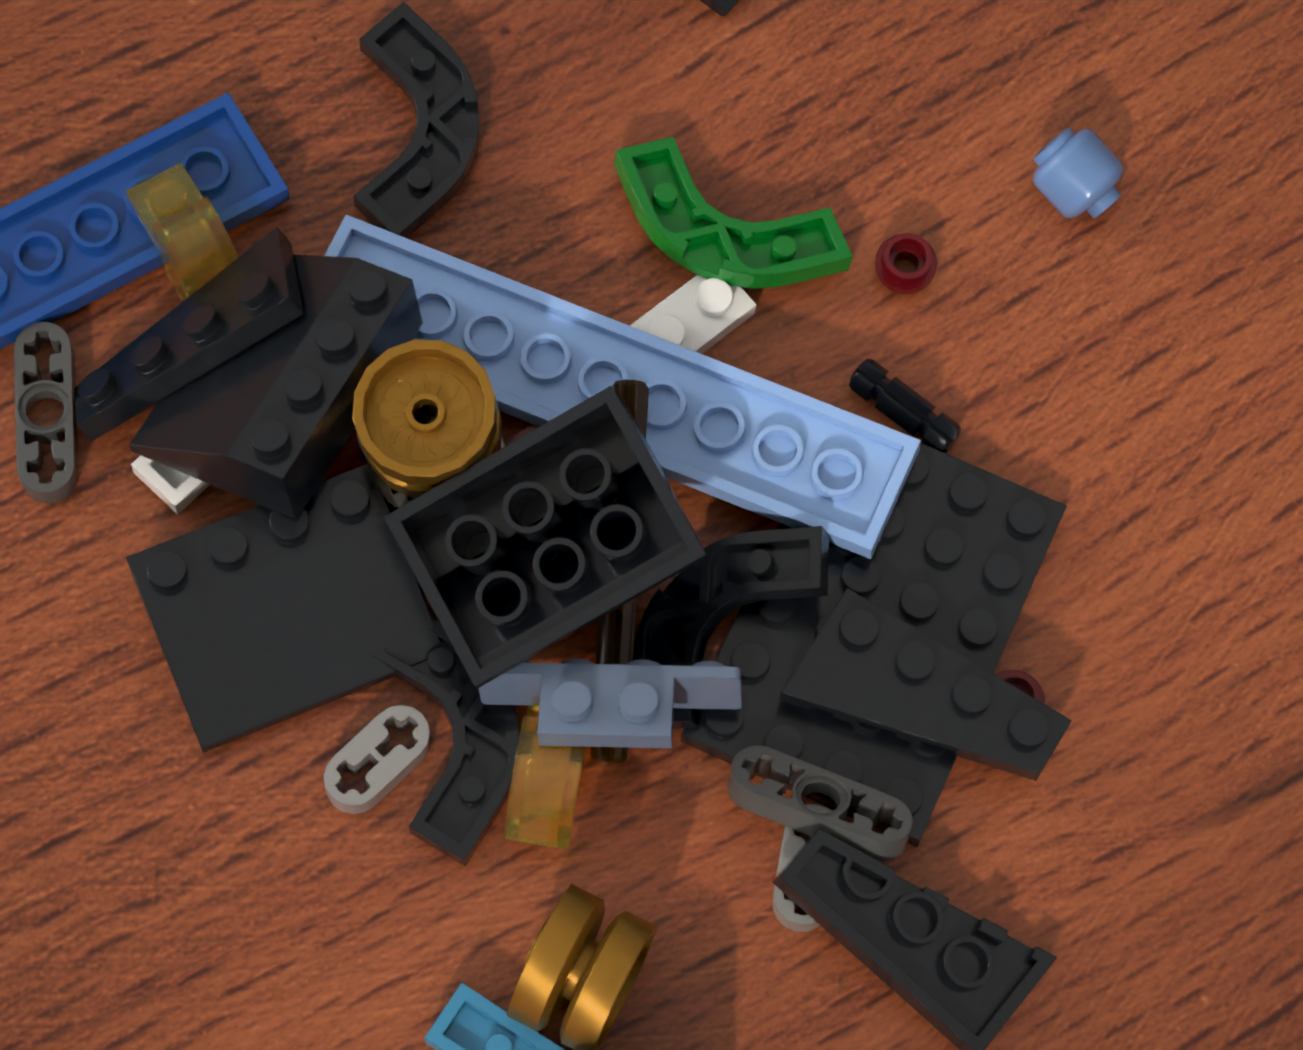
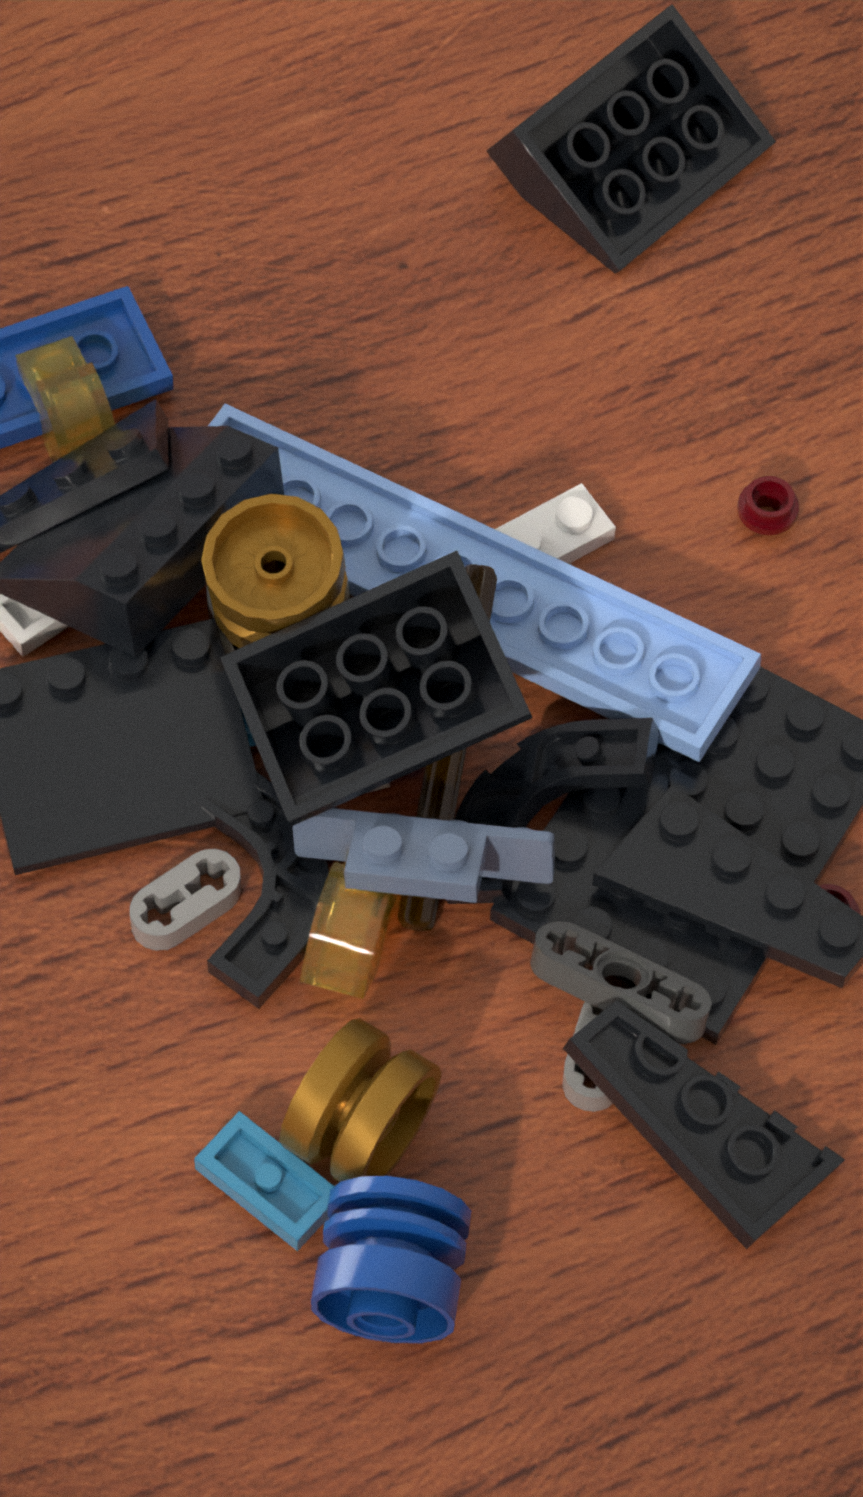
camera: 10 degrees right, 10 degrees down
(445, 129) = (333, 337): black plate -> none
(718, 245) = (583, 468): green plate -> none
(904, 406) = (752, 632): black axle -> none

